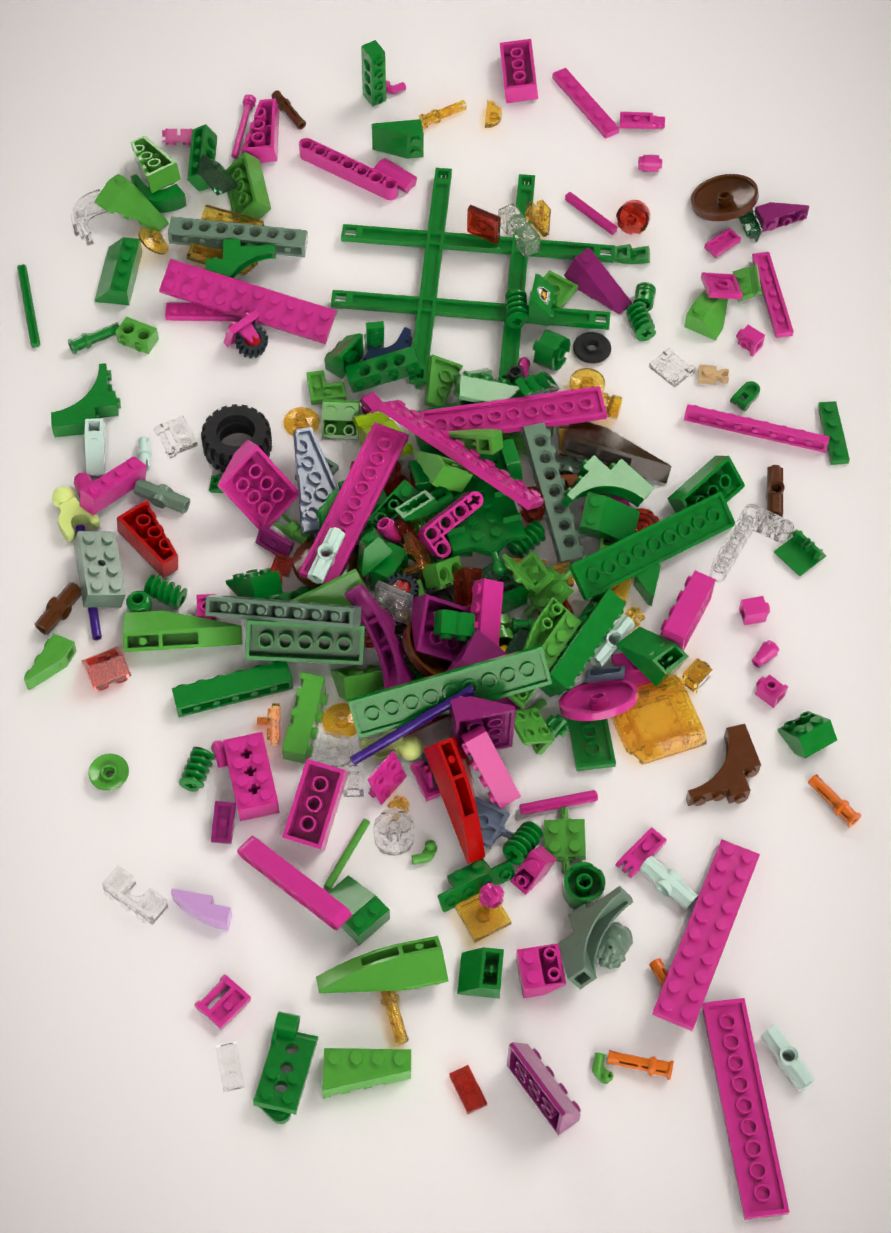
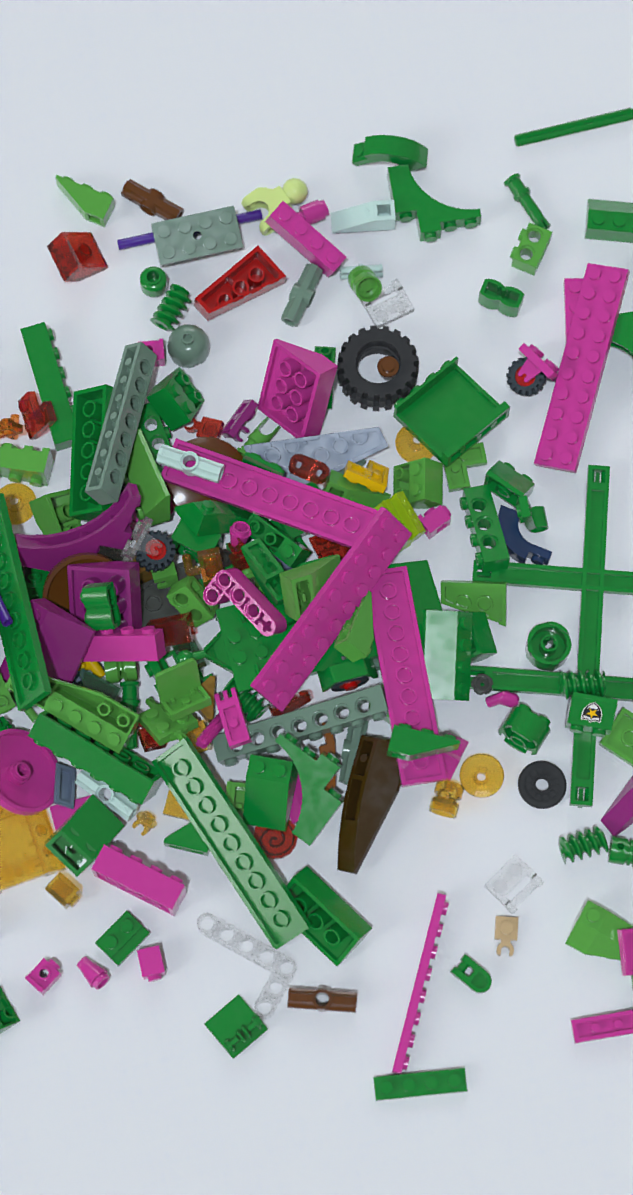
camera: 90 degrees right, 15 degrees up
(34, 428) = (390, 149): none -> green arch
(159, 444) = (364, 283): none -> bright green wheel
(176, 631) = (115, 312): bright green wedge -> none
(180, 354) = (497, 296): none -> green brick
(201, 579) = (188, 346): none -> sand green cylinder
(242, 420) = (388, 366): none -> reddish brown plate
(261, 701) = (35, 416): none -> clear red plate
(282, 391) = (449, 412): none -> green panel
(324, 482) = (308, 468): none -> clear red beam
(334, 444) = (373, 476): none -> yellow plate
(345, 458) = (340, 486): none -> bright green slope
(481, 334) = (550, 658): none -> green brick
(537, 384) = (460, 708): green slope -> none
(548, 539) = (233, 719): none -> dark pink hinge
(557, 557) = (210, 732): none -> dark pink axle
(575, 400) = (415, 744): none -> green slope
(733, 634) = (122, 938): none -> green plate
(750, 339) = (560, 985): dark pink brick -> none

